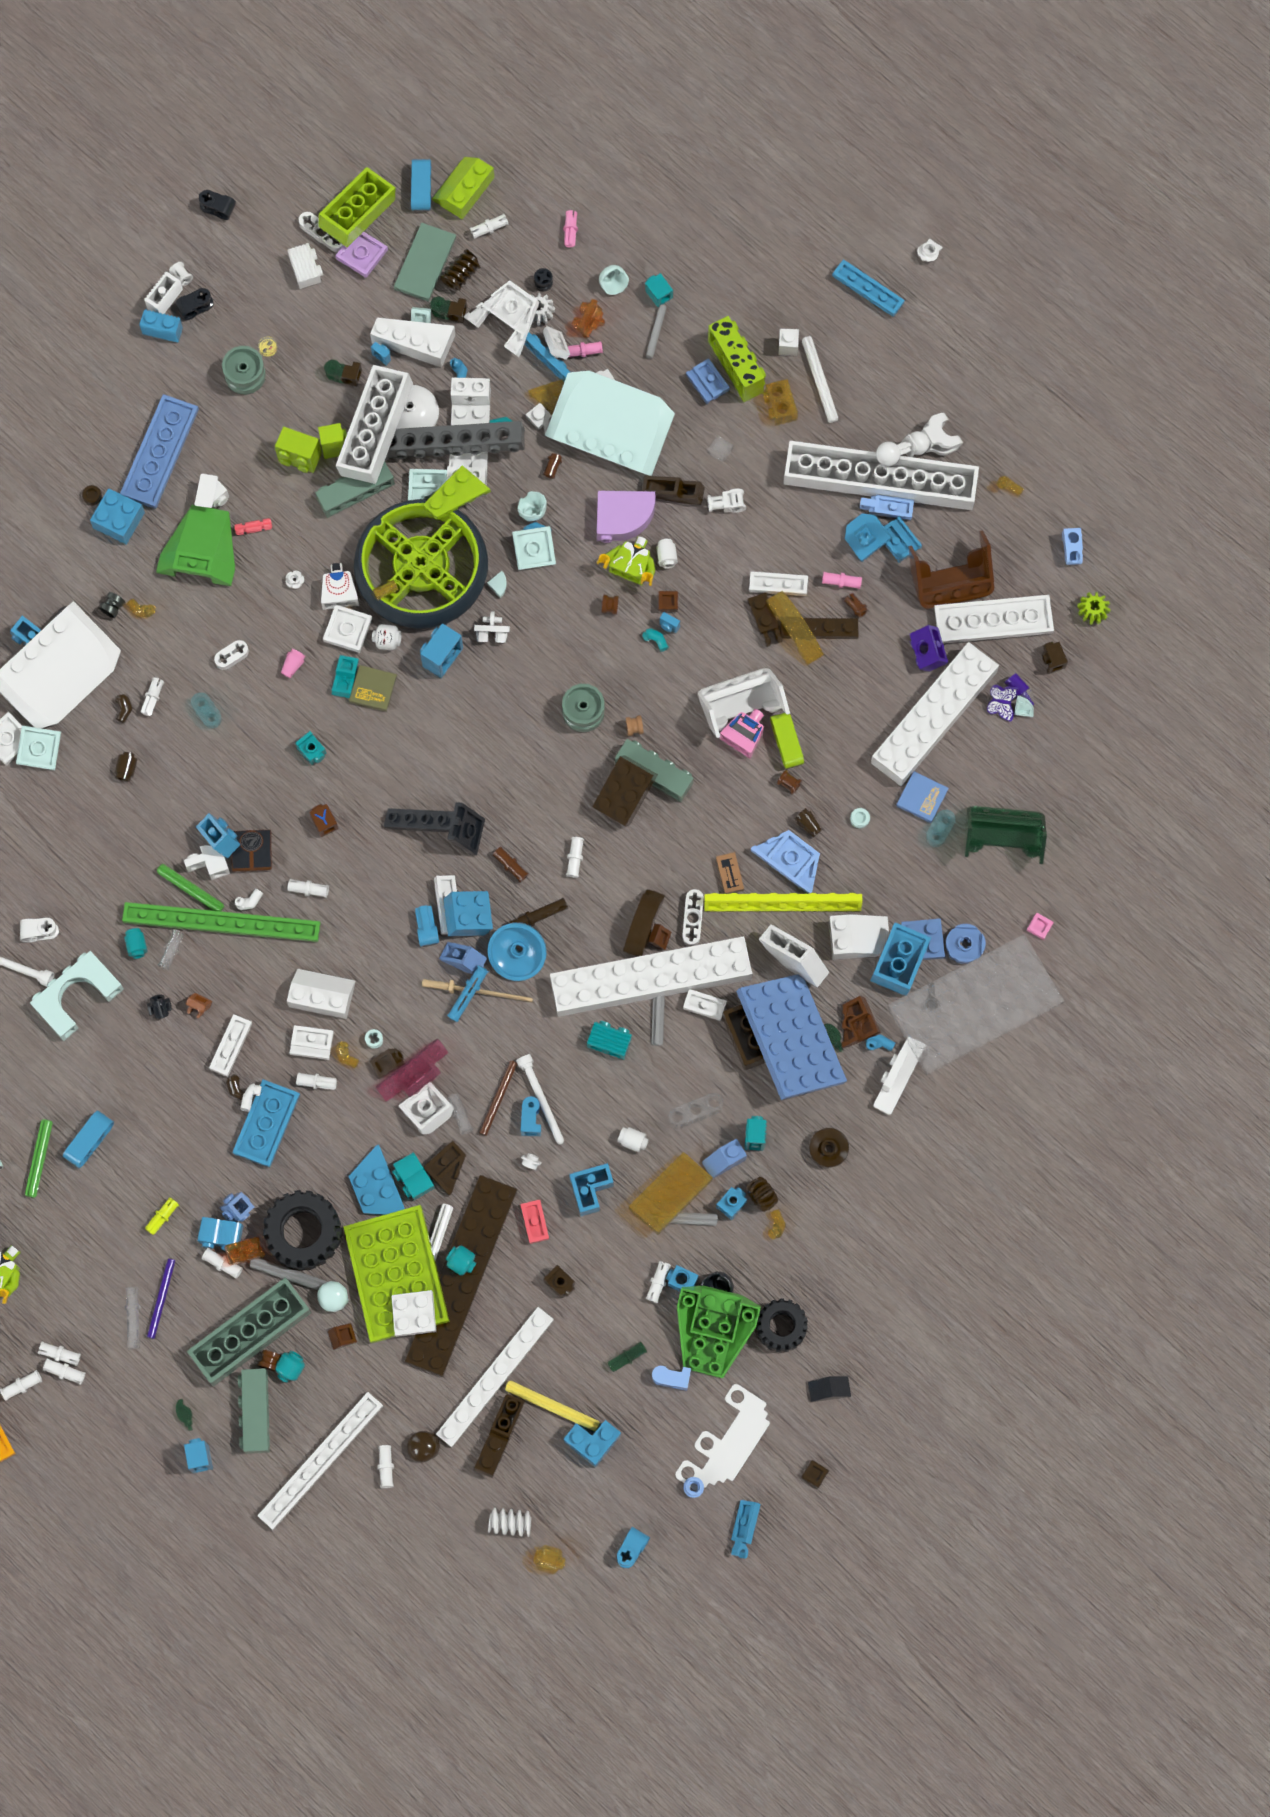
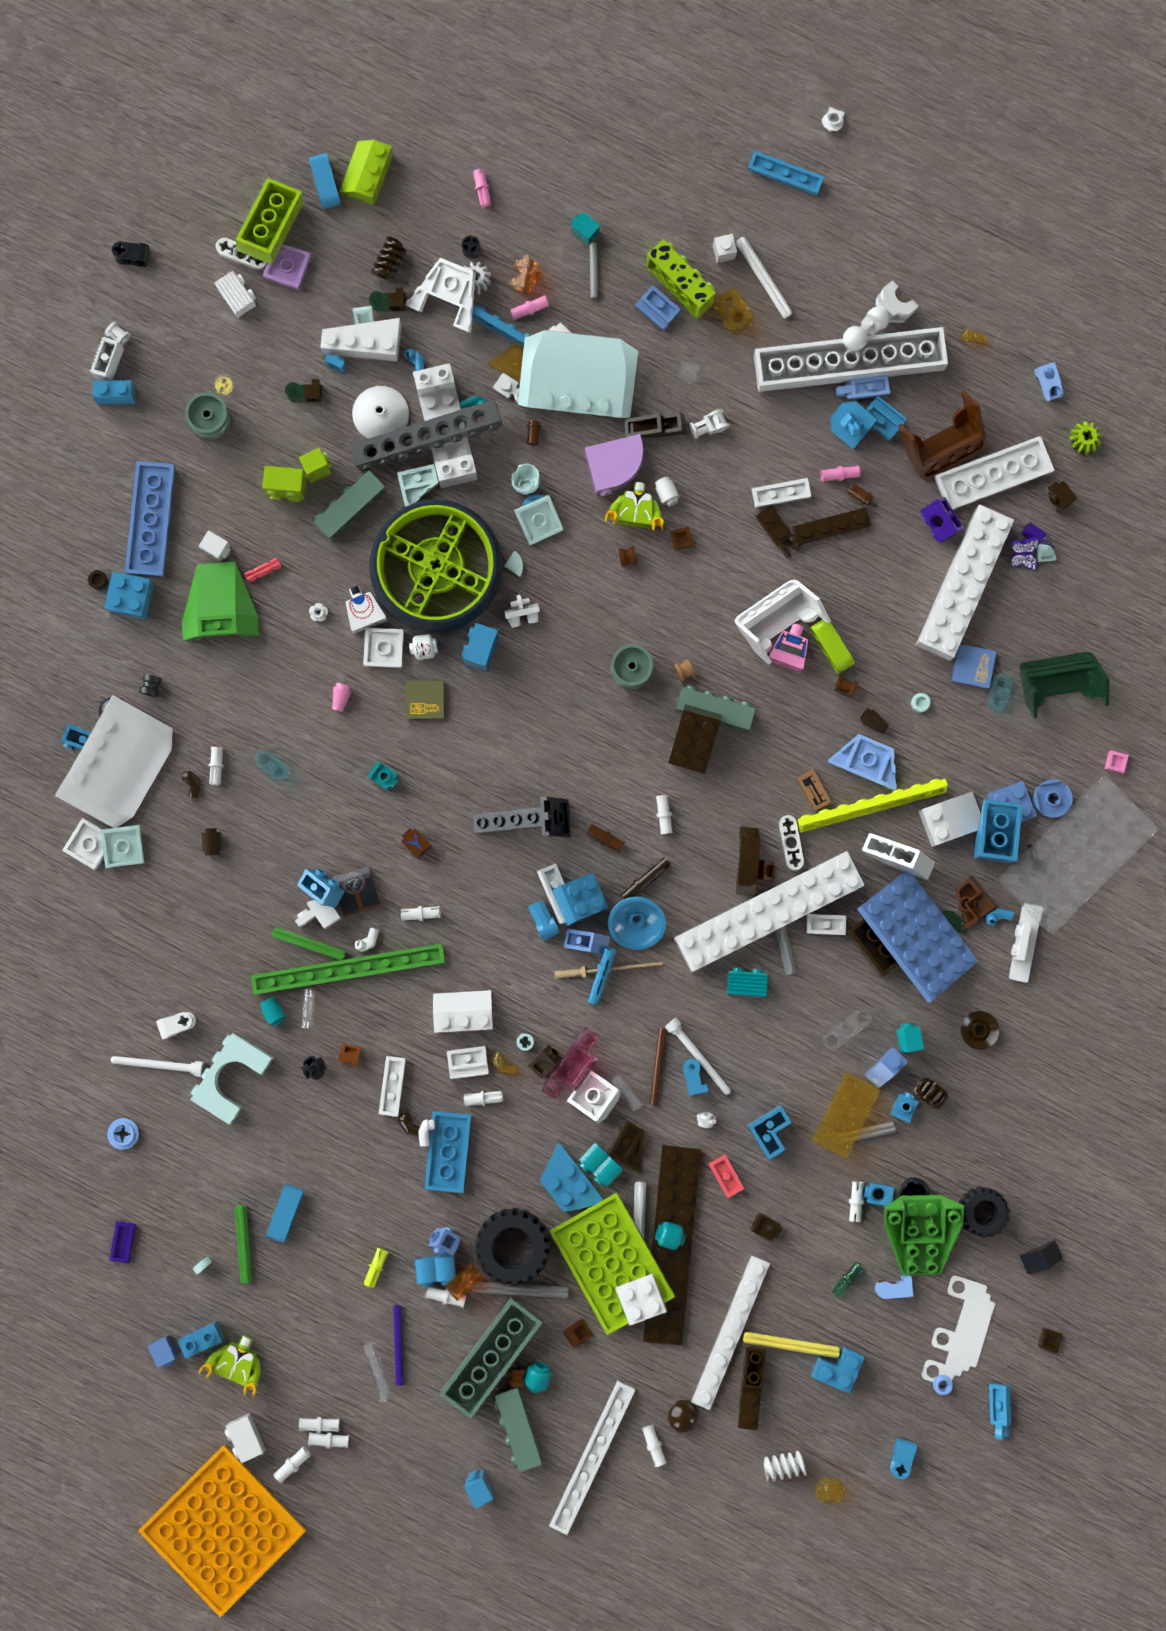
camera: 20 degrees left, 10 degrees up
(141, 610) = (179, 683): clear yellow arm -> none
(184, 1414) = (452, 1447): clear green piece -> none
(193, 305) = (138, 362): black piece -> none
(206, 490) = (207, 548): white sticker -> none
(229, 651) = (283, 706): white beam -> none
(332, 1296) = (558, 1300): light aqua hair -> none
(345, 676) = (394, 695): teal slope -> none
(374, 424) = (352, 439): white brick -> none
(385, 589) = (411, 604): clear yellow pin -> none
(425, 262) = (351, 258): sand green tile -> none
(455, 492) = (451, 488): lime wing -> none
(489, 226) = (402, 206): white pin -> none
(556, 343) = (502, 308): white plate -> none
(613, 279) = (539, 229): light aqua hair -> none
(633, 1139) = (795, 1072): white brick -> none
(651, 634) = (676, 575): teal arm -> none
(669, 623) = (689, 560): dark azure plate -> none
(779, 1225) = (953, 1116): clear yellow arm -> none
(796, 627) = (809, 531): clear yellow slope -> none

